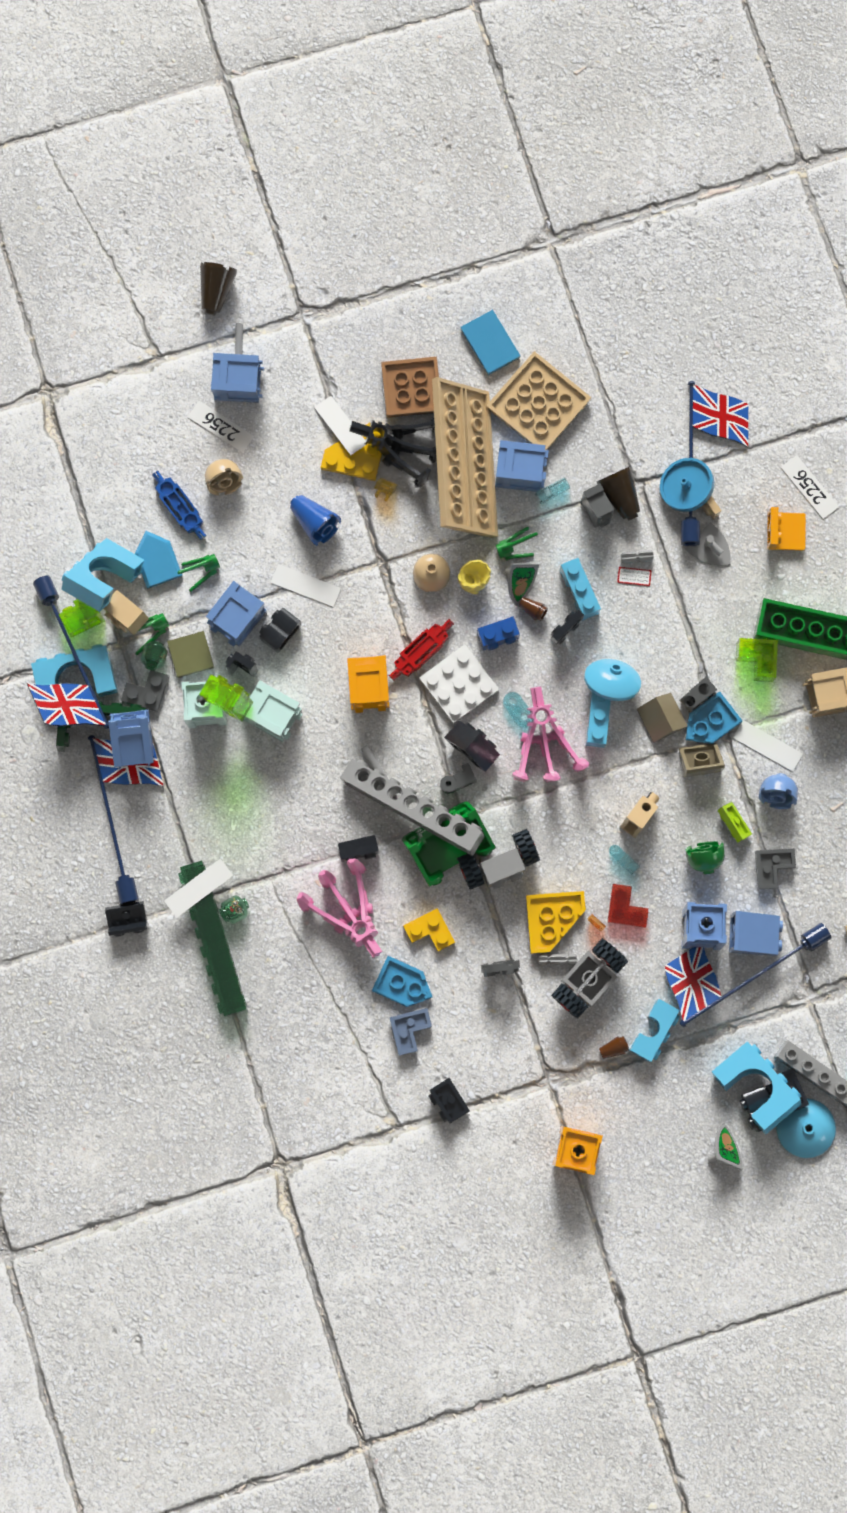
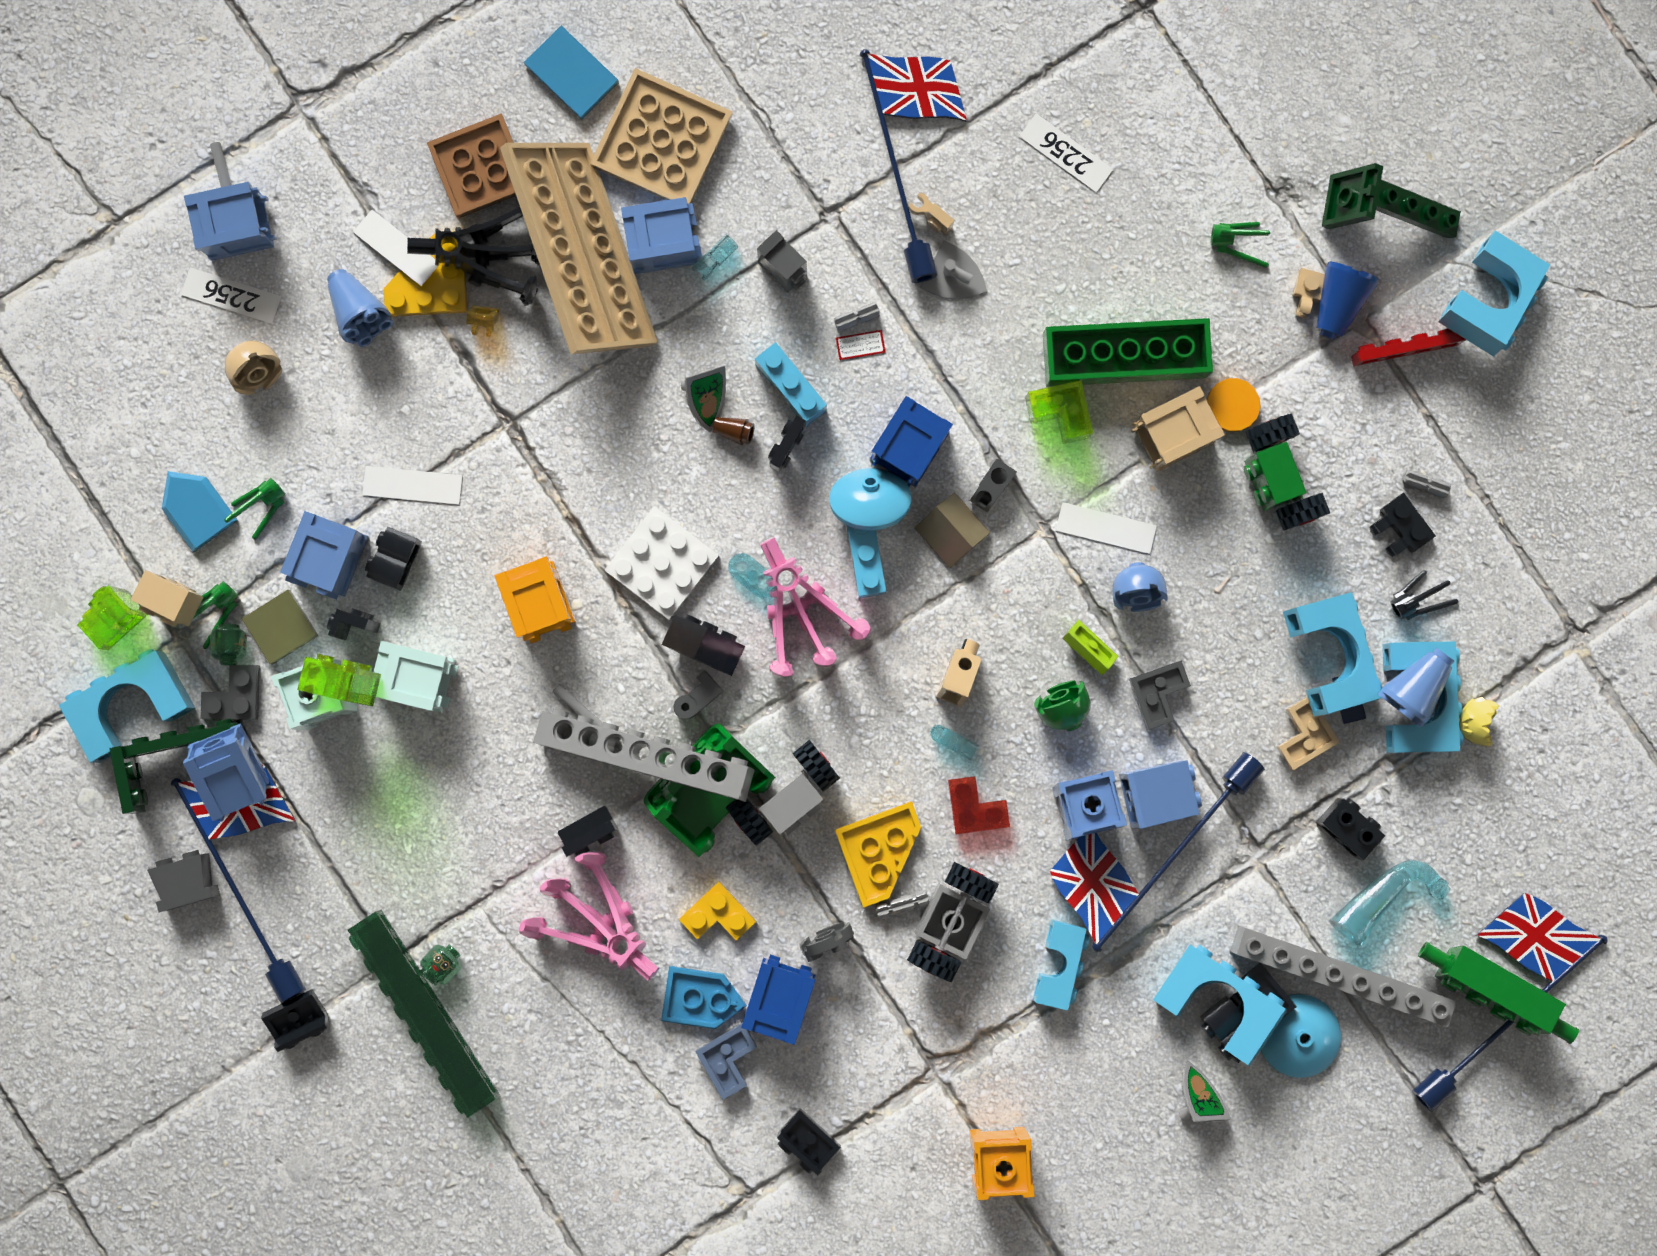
camera: 20 degrees left, 5 degrees up
(66, 702) = (122, 748): flag -> none
(78, 804) = (183, 881): none -> dark grey hips
(107, 557) = (117, 526): medium azure arch -> none
(168, 490) = (183, 406): blue piece -> none
(198, 888) = (381, 951): white sticker -> none
(215, 286) = (163, 99): dark brown cone -> none
(303, 458) = (356, 309): none -> medium blue cone
(315, 519) = (398, 391): blue cone -> none
(407, 663) = (582, 554): red piece -> none
(431, 573) = (580, 419): tan cylinder -> none
(456, 997) = (779, 1000): none -> blue container
(474, 576) = (640, 408): light yellow hair -> none
(498, 633) = (696, 478): blue brick -> none
(505, 547) = (672, 355): green plant -> none
(596, 922) = (941, 839): clear orange tile -> none
(615, 1047) = (1013, 1002): reddish brown cone -> none
(622, 493) = (811, 234): dark brown cone -> none
(650, 649) = (910, 441): none -> blue container
(687, 484) = (897, 197): dark azure piece -> none
(701, 760) = (1021, 573): dark tan slope -> none
(712, 720) = (1021, 515): dark azure tile -> none
(785, 530) = (1050, 223): light orange bracket -> none

